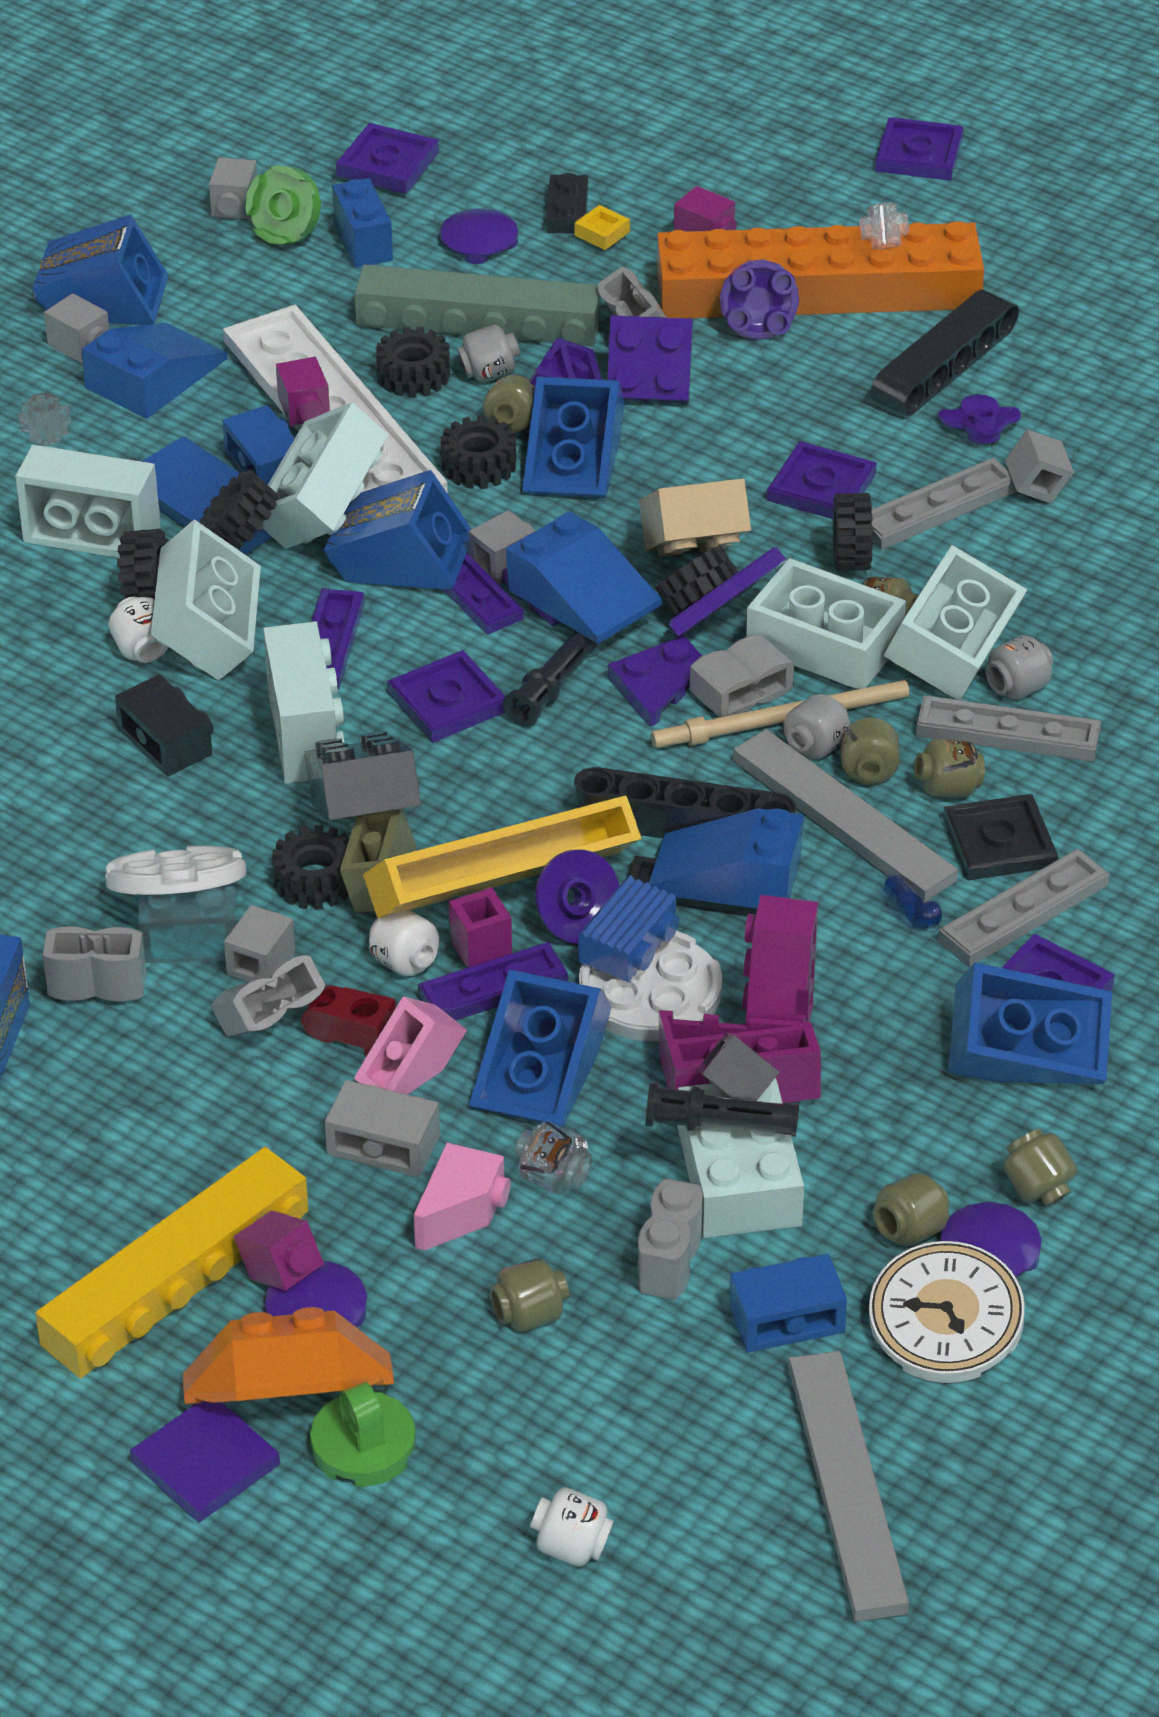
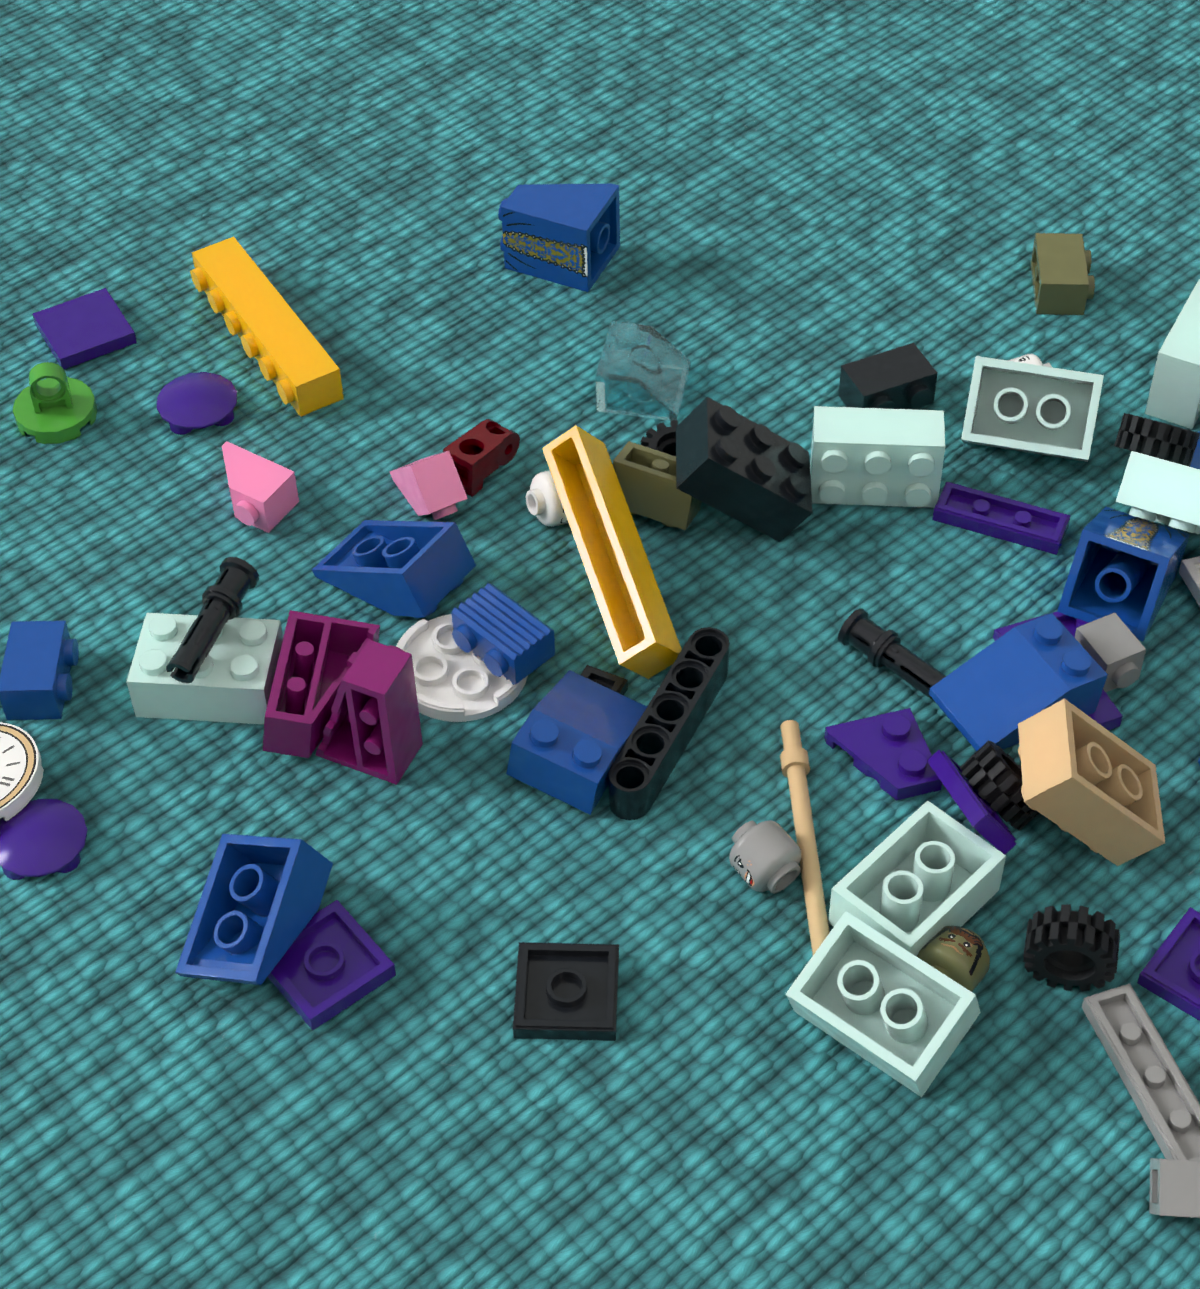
camera: 105 degrees right, 5 degrees up
(94, 963) = (589, 305): light grey brick -> none
(140, 561) = (1106, 364): black tyre -> none
(175, 870) = (676, 356): white tile -> none
(257, 942) = (587, 406): light grey brick -> none
(268, 996) = (515, 398): light grey brick -> none
(278, 1250) = (236, 369): magenta brick -> none
(285, 1357) = (114, 367): orange wedge -> none
(382, 1128) = (348, 454): light grey brick -> none
(447, 696) = (899, 587): dark purple tile -> none
(480, 927) = (544, 538): magenta brick -> none
(482, 985) = (501, 552): dark purple tile -> none
(529, 1295) = (132, 511): olive head -> none
(553, 1157) = (266, 545): clear head -> none
(592, 885) = (569, 608): dark purple dish -> none
(670, 1239) = (127, 595): light grey brick -> none
(737, 1069) = (256, 643): panel -> none
(741, 676) = (858, 805): light grey brick -> none
(845, 814) = (632, 862): light grey tile -> none
(870, 746) = (715, 893): olive head -> none
(911, 1209) = (90, 776): olive head -> none
(919, 914) = (485, 876): clear blue arm -> none
(950, 768) = (666, 956): olive head -> none
(1009, 728) = (733, 1048): light grey tile -> none
(1019, 667) = (817, 1068): light grey head -> none
(1023, 907) = (457, 986): light grey tile -> none
(1040, 1167) = (90, 884): olive head -> none

